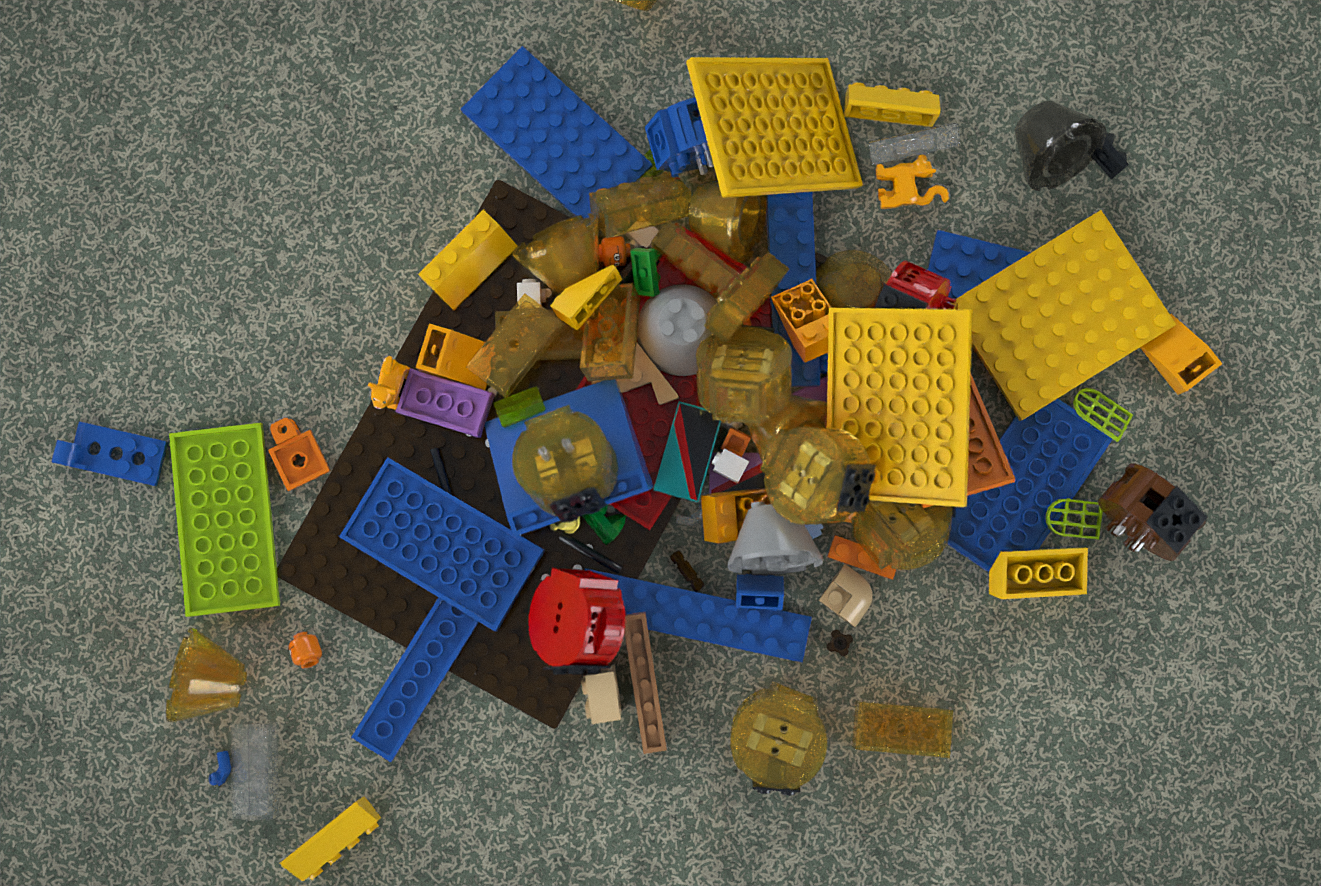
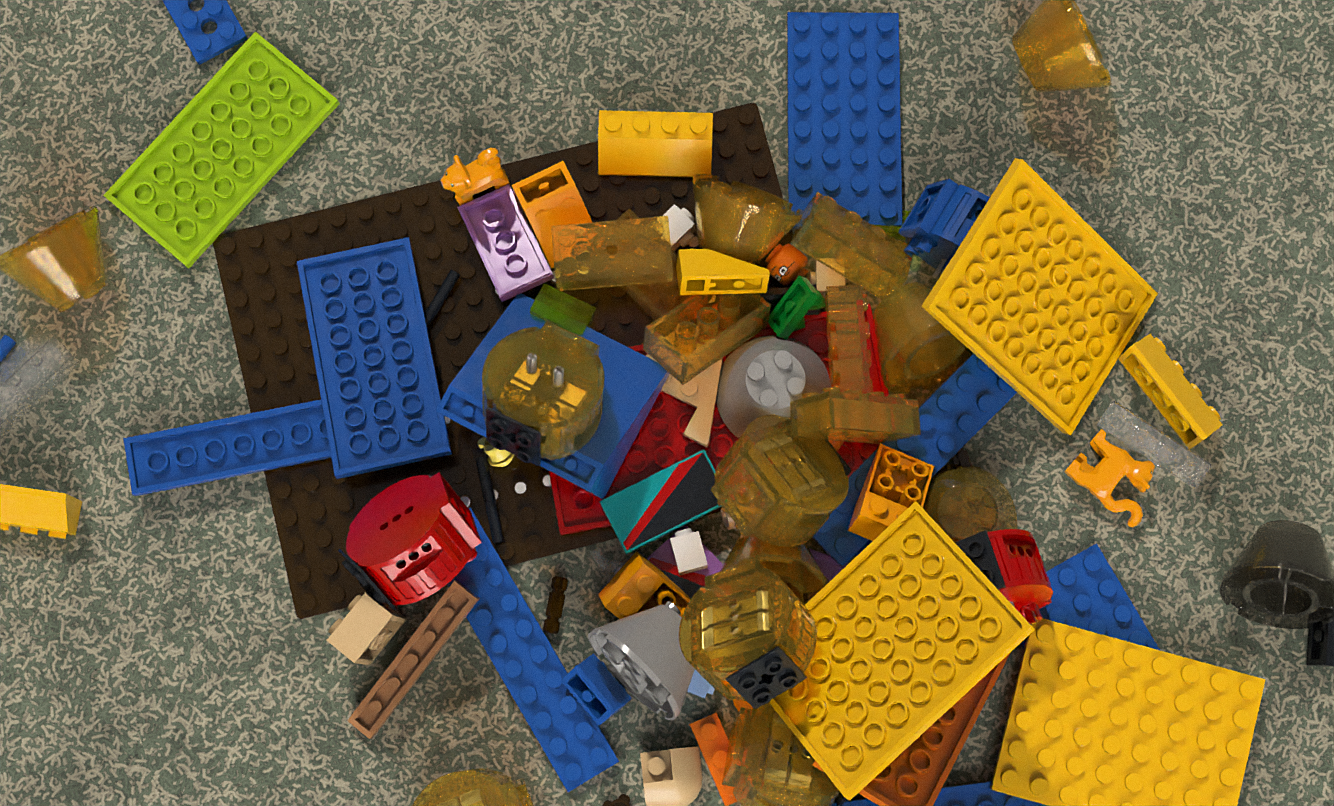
camera: 50 degrees right, 5 degrees down
(291, 444) = (342, 144): orange plate -> none
(305, 650) = (167, 326): orange head -> none
(605, 527) = (527, 493): green tile -> none
(736, 442) = (716, 538): orange tile -> none

